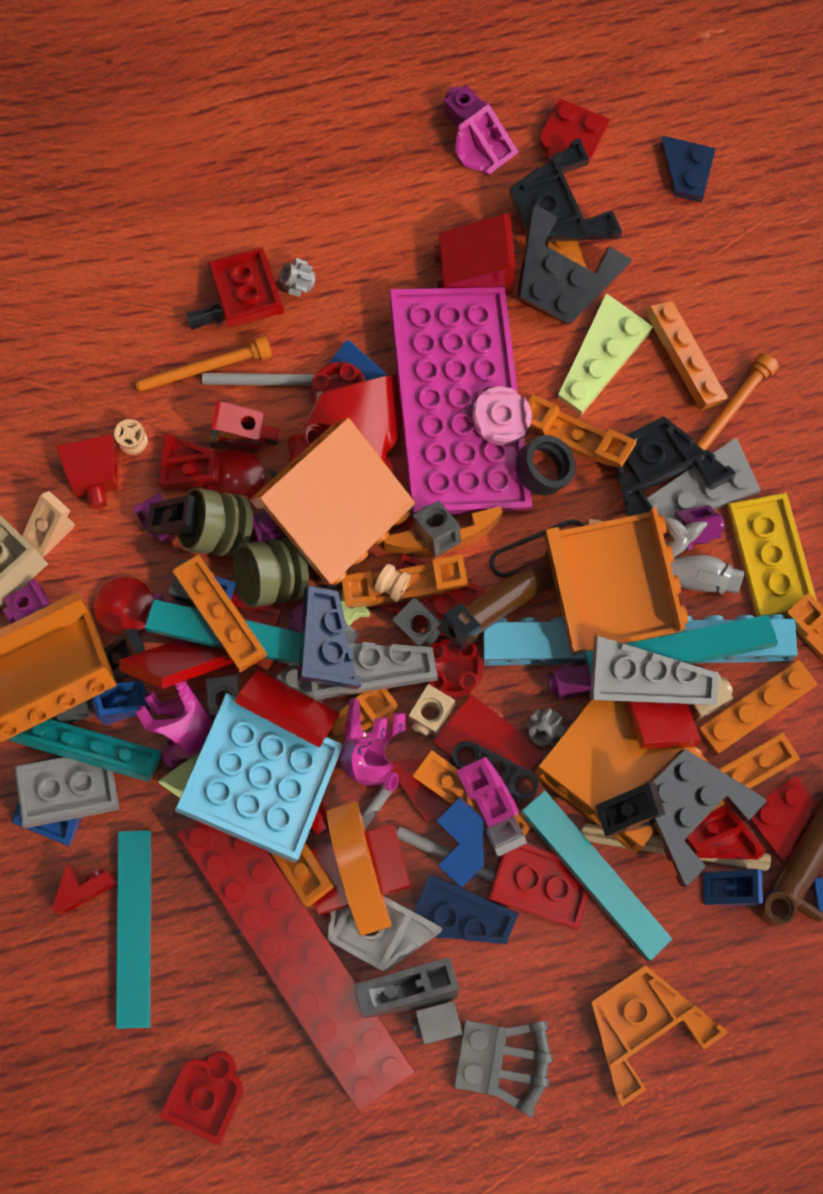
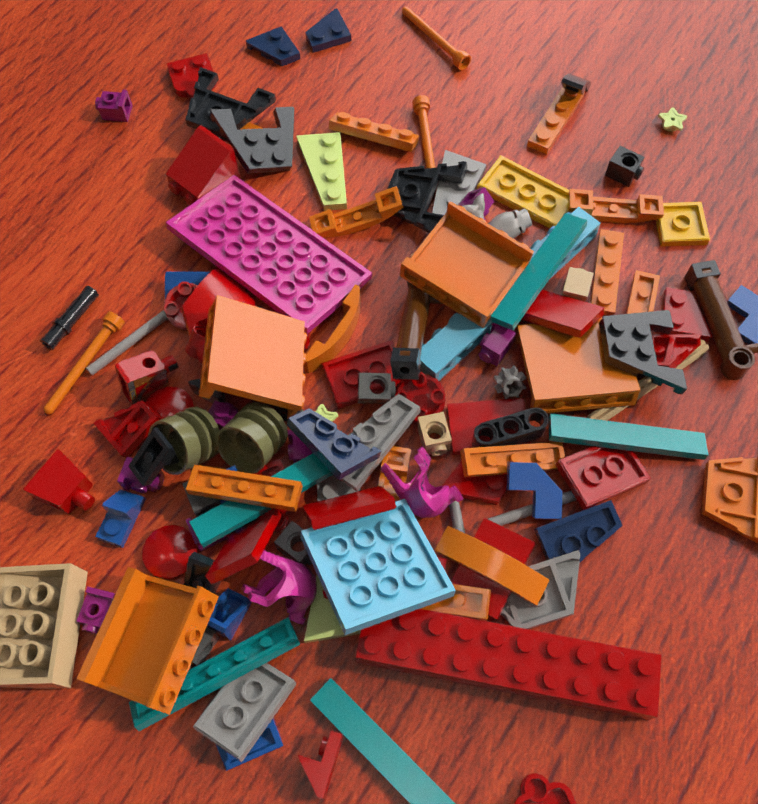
camera: 45 degrees left, 10 degrees down
(47, 524) = (62, 541): light nougat slope -> none
(113, 539) = (120, 517): none -> blue slope
(126, 431) = (69, 437): light nougat wheel -> none
(245, 287) = (67, 295): red tile -> none
(297, 277) = (97, 265): light grey gear -> none
(392, 582) = (336, 377): light nougat wheel -> none
(408, 989) = (601, 606): flat silver slope -> none
(425, 581) = (345, 373): orange slope -> none
(437, 1023) = (636, 613): brick -> none
(438, 538) = (332, 323): dark grey brick -> none
(483, 142) = (143, 114): dark pink slope -> none
(483, 1057) = (681, 608): dark grey plate -> none
(489, 791) = (522, 441): dark pink slope -> none
(501, 415) = (304, 238): bright pink tile -> none
(505, 836) = (557, 459): light grey tile -> none
(510, 573) = (383, 302): black piece -> none
(560, 454) = (353, 253): black tyre -> none
(630, 810) = (615, 371): black slope -> none
(643, 676) = (536, 298): light grey wing -> none
(733, 888) = (706, 371): blue slope -> none
(759, 195) = (328, 32): none -> dark blue wing

